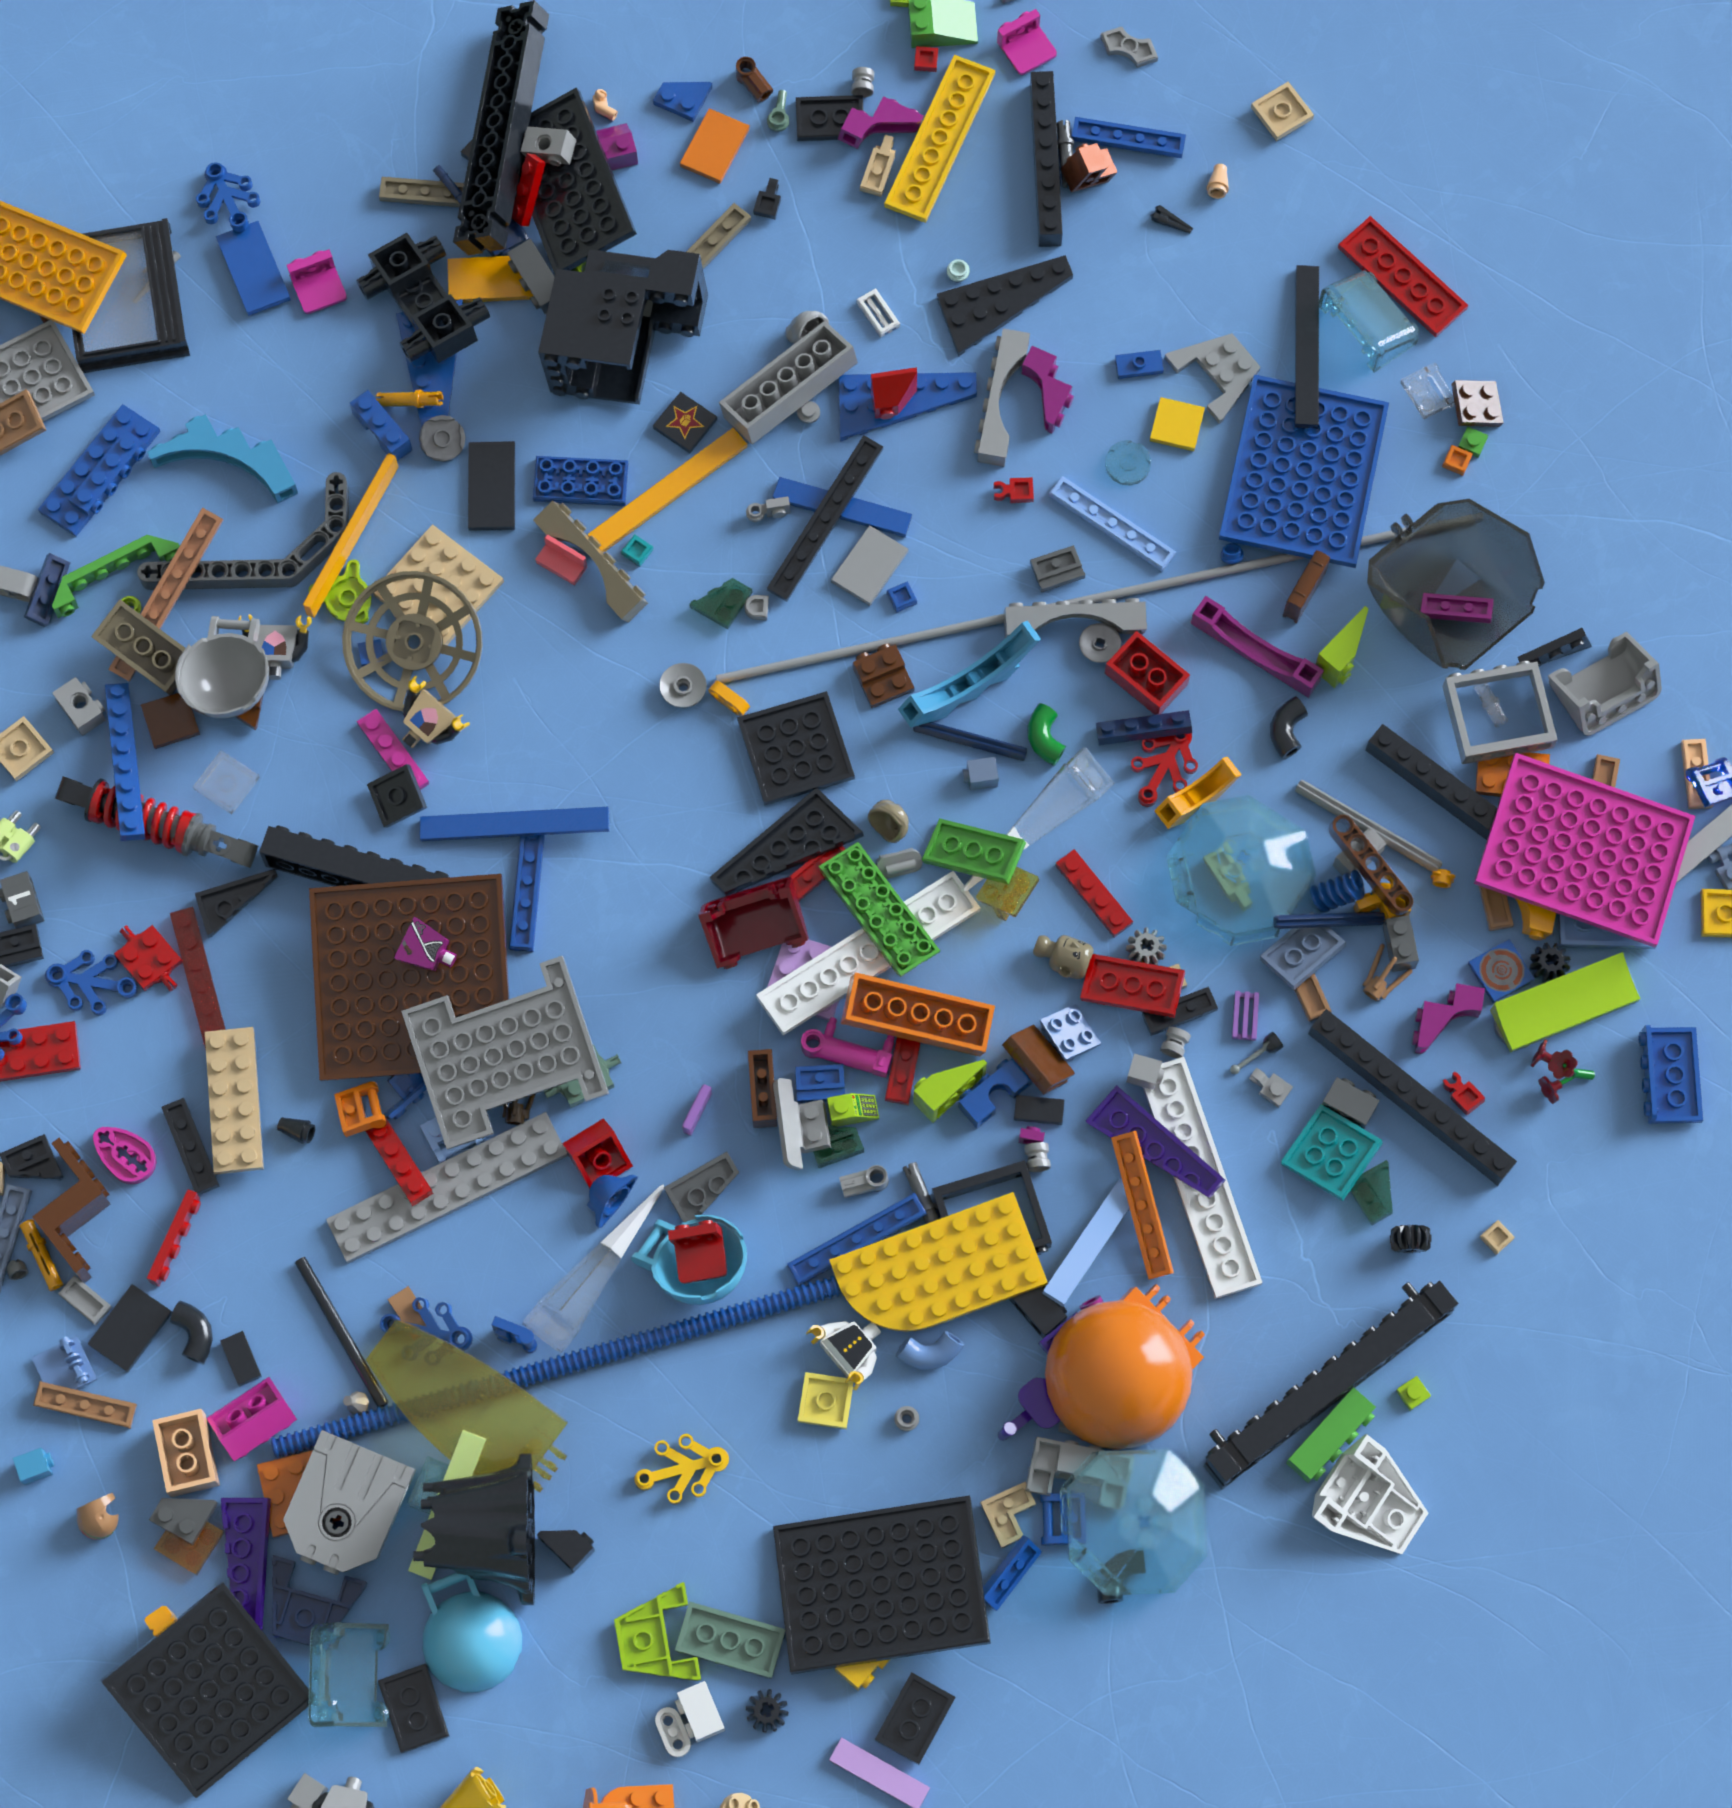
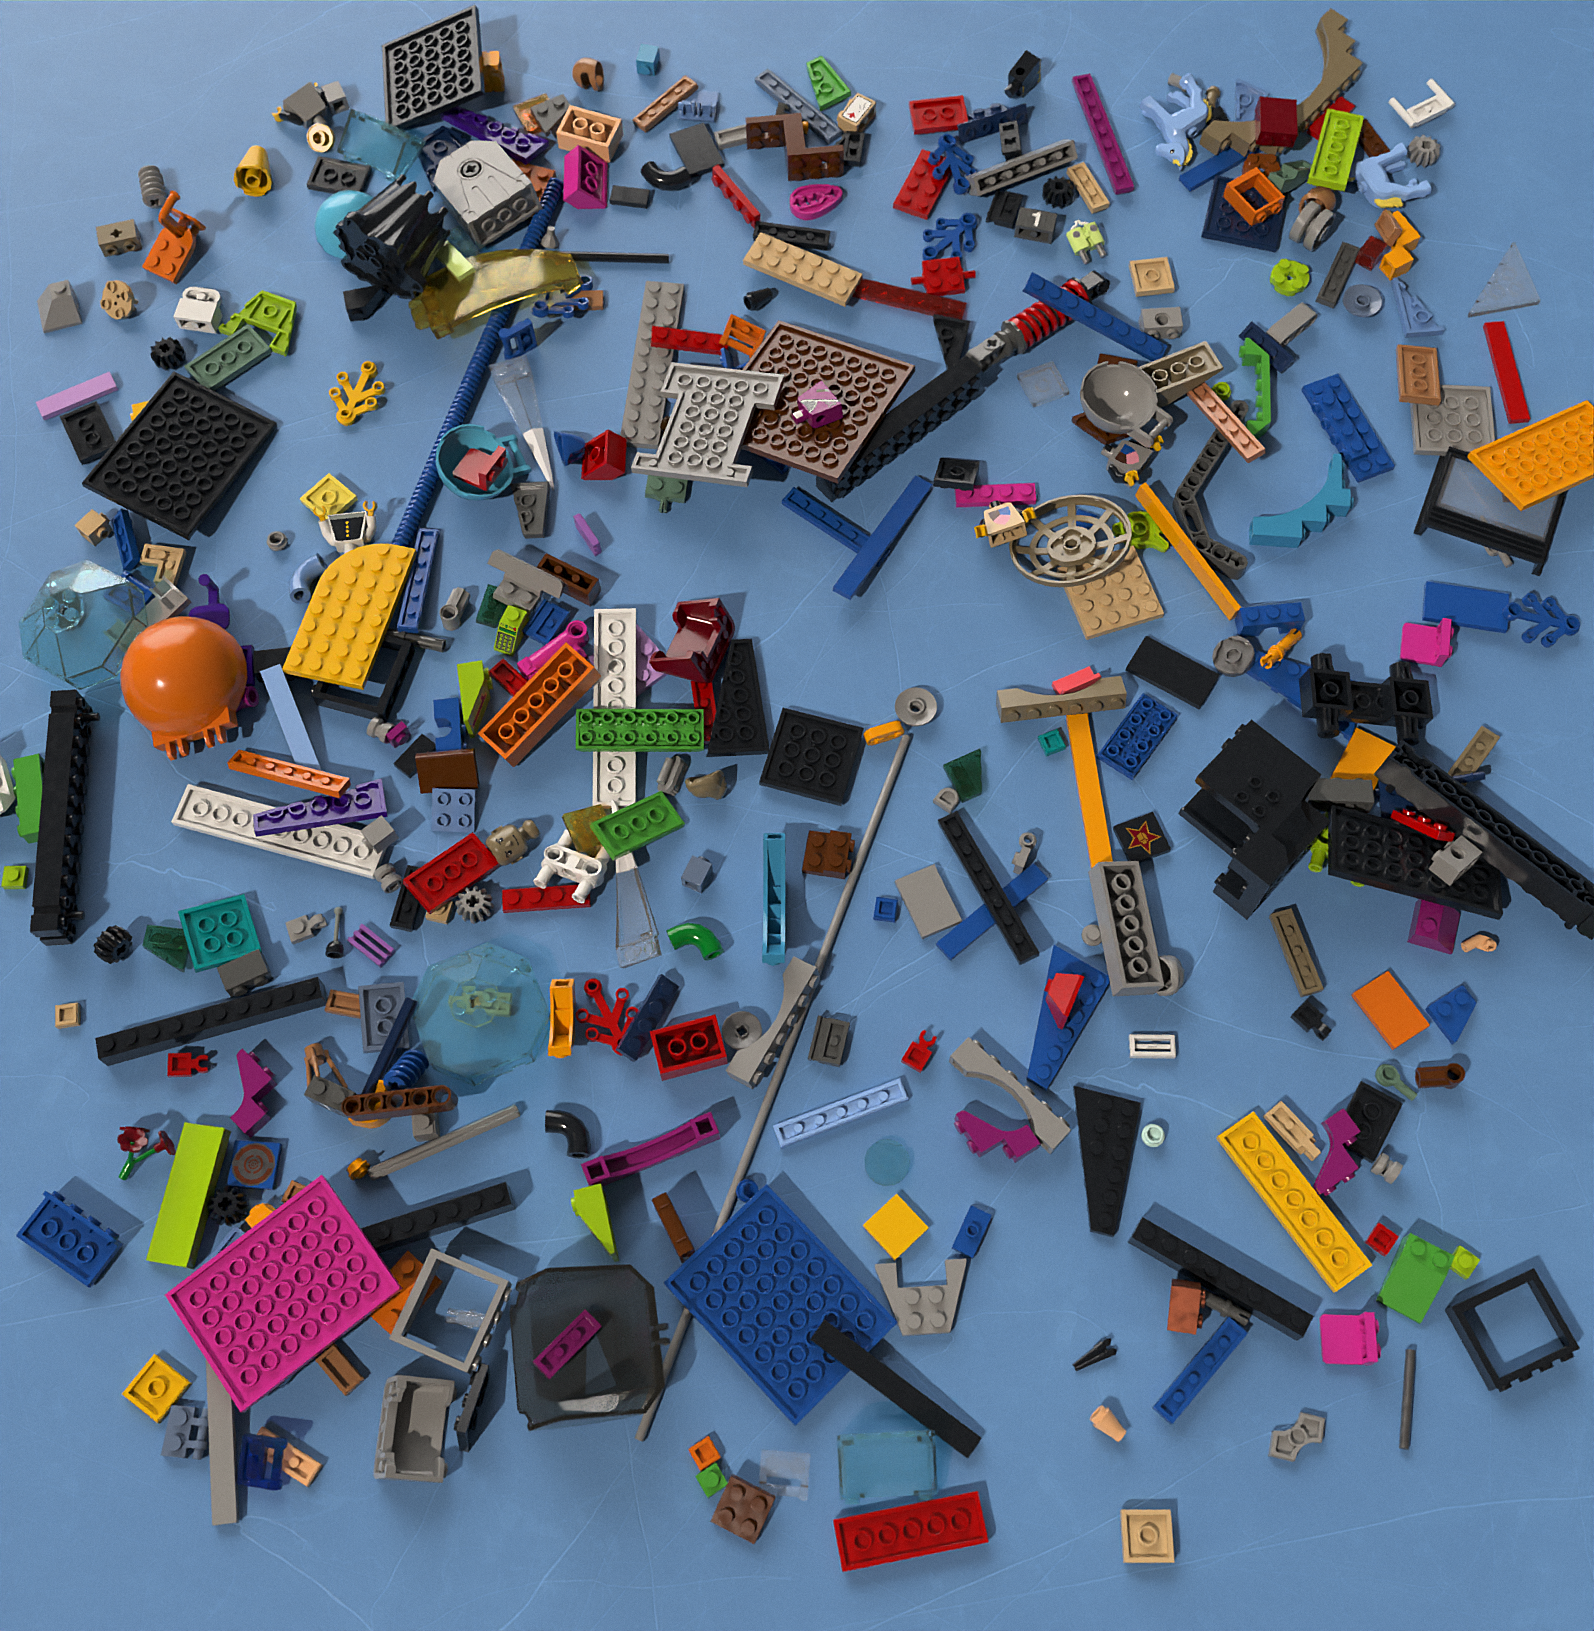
camera: 125 degrees right, 5 degrees down
(377, 1763) = (320, 137): none -> yellow plate
(972, 740) = (726, 889): dark blue axle -> none
(1017, 1616) = (94, 527): none -> tan brick
(1051, 883) = (573, 867): none -> white piece

